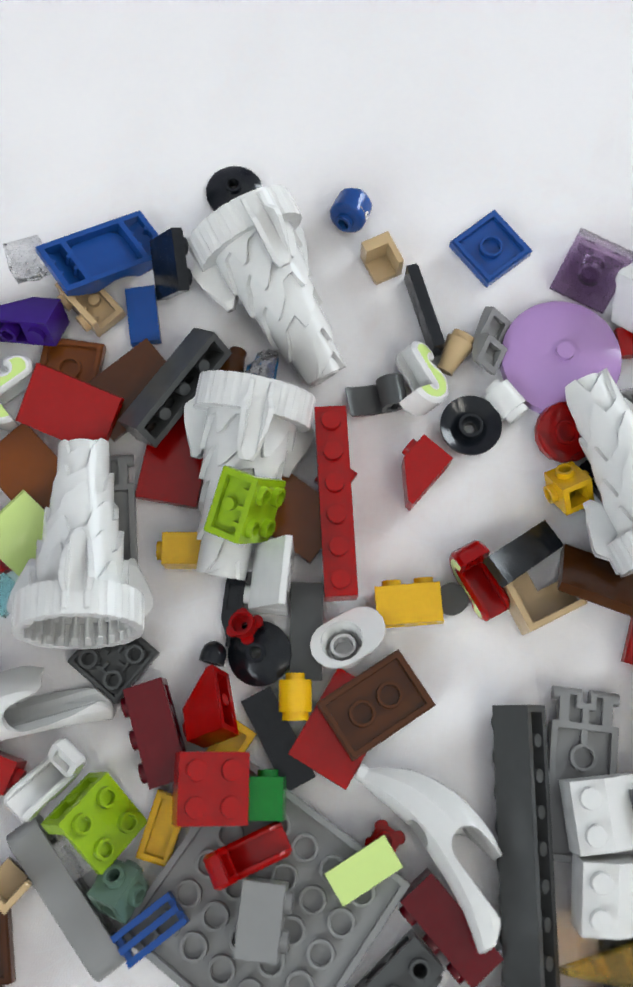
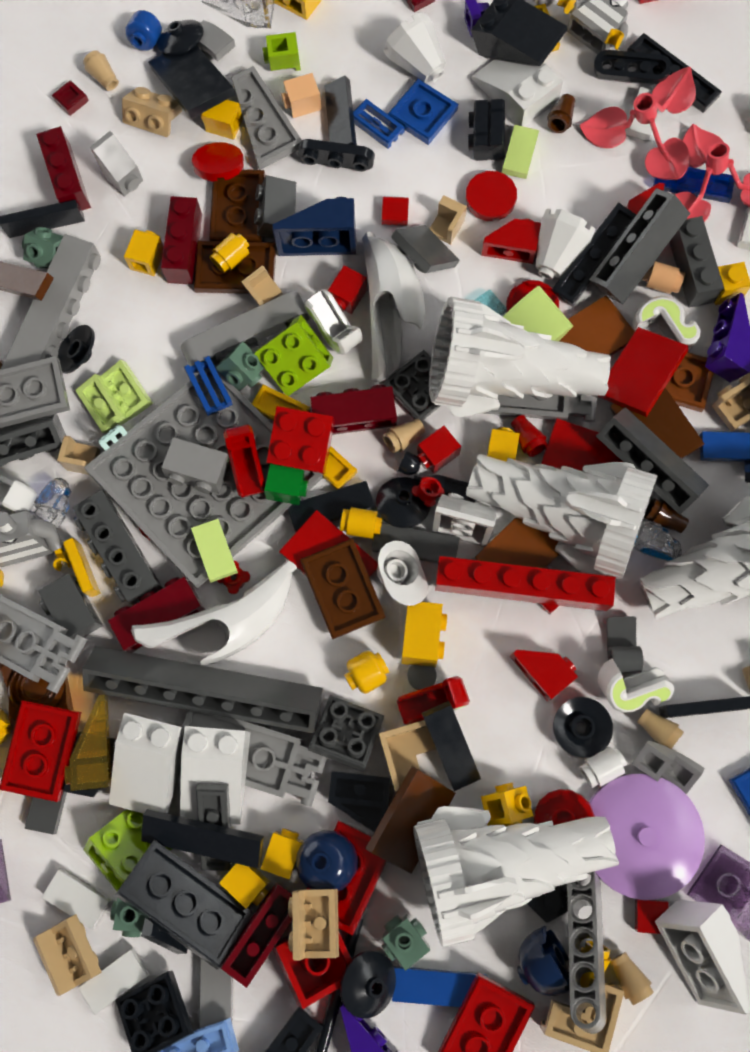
camera: 105 degrees right, 0 degrees up
(164, 519) = (530, 438): none -> red cone
(181, 669) = (402, 435): none -> tan cone
(192, 623) = (438, 450): none -> red brick
(210, 710) = (364, 454): red slope -> none
(245, 506) = (525, 496): lime bracket -> none
(463, 659) = (366, 671): none -> yellow head
(533, 669) = (346, 733): none -> dark grey tile
(594, 641) = (360, 796): none -> black wing

